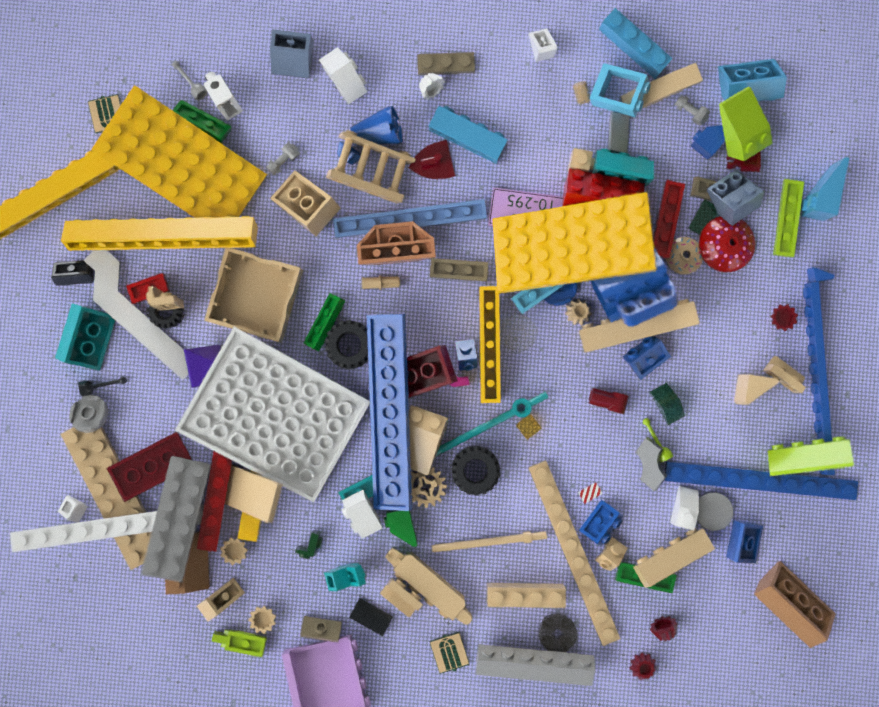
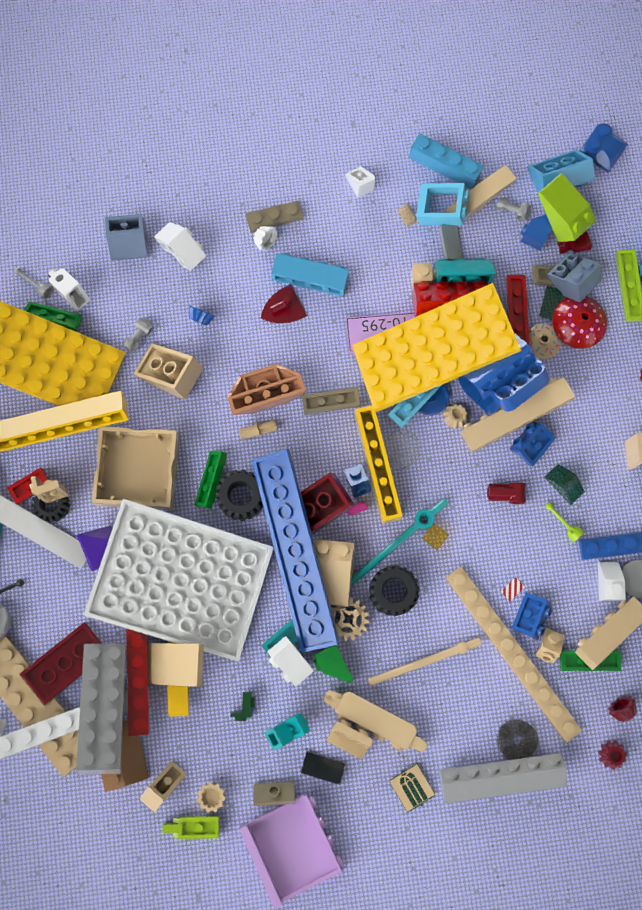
camera: 15 degrees left, 10 degrees down
(233, 551) = (166, 731): tan piece -> none
(356, 180) = (213, 337): tan fence -> none
(380, 127) = (223, 287): blue cone -> none
(422, 216) = (286, 357): medium blue plate -> none
(526, 595) = (475, 707): tan brick -> none
(652, 473) = (561, 537): tile -> none
(803, 63) = (604, 147): none -> blue slope

